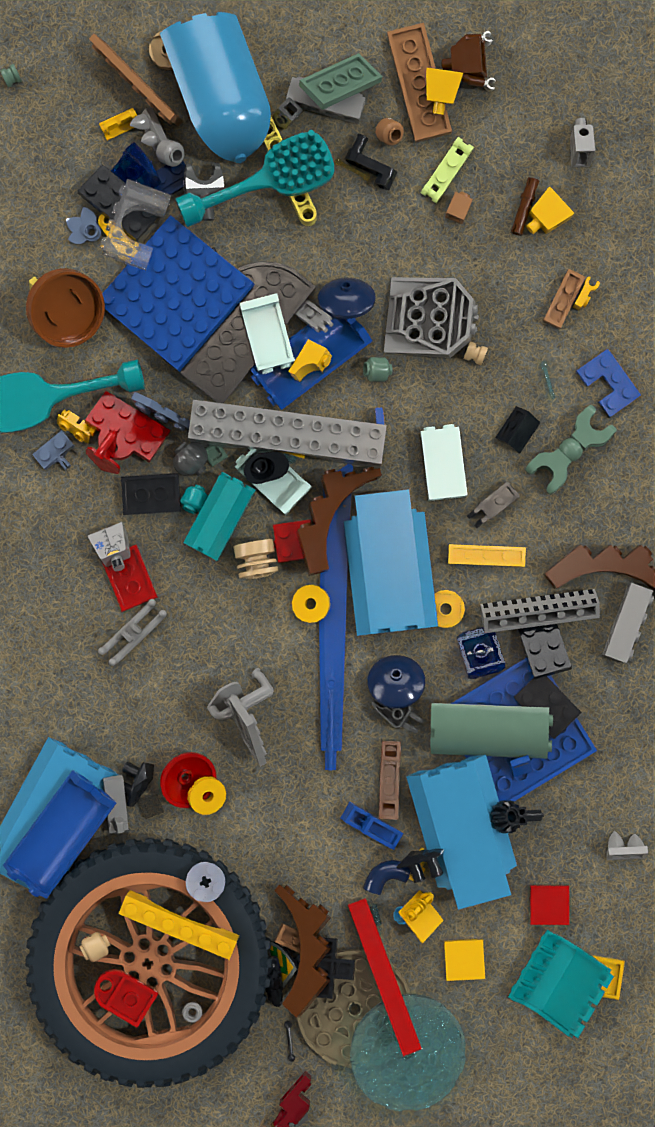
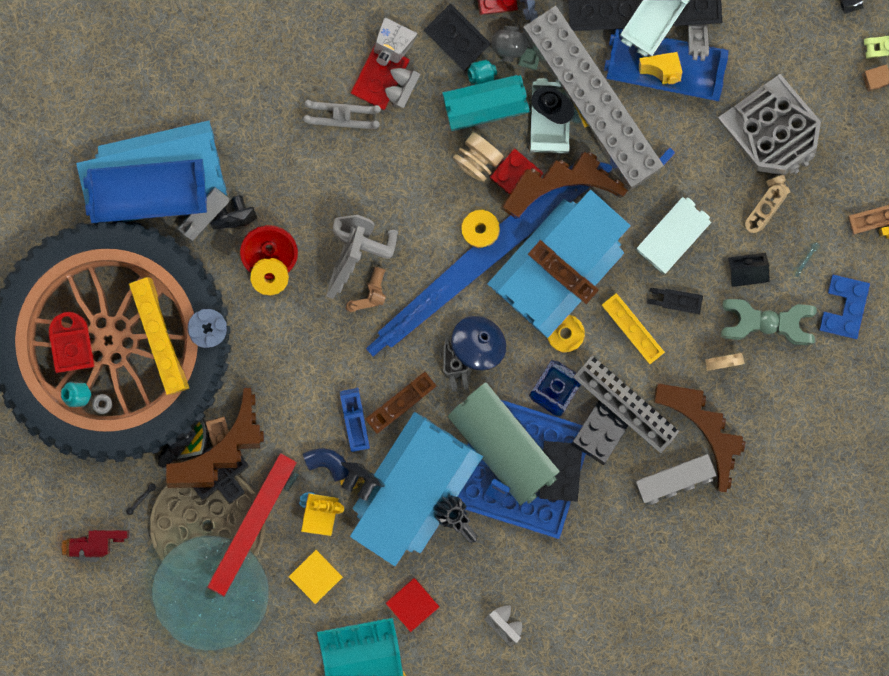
camera: 45 degrees right, 0 degrees up
(95, 947) = (88, 288): tan head -> none
(150, 560) = (407, 80): none -> light grey tile
(167, 1027) = (76, 394): none -> teal head
(291, 727) = (375, 295): none -> medium nougat pin
(346, 298) = (733, 53): dark blue dish -> none
(377, 369) = (700, 124): sand green head -> none
(400, 571) = (563, 272): none -> reddish brown slope
(487, 362) = (769, 194): none -> tan beam
(571, 511) = (724, 361): none -> tan plate

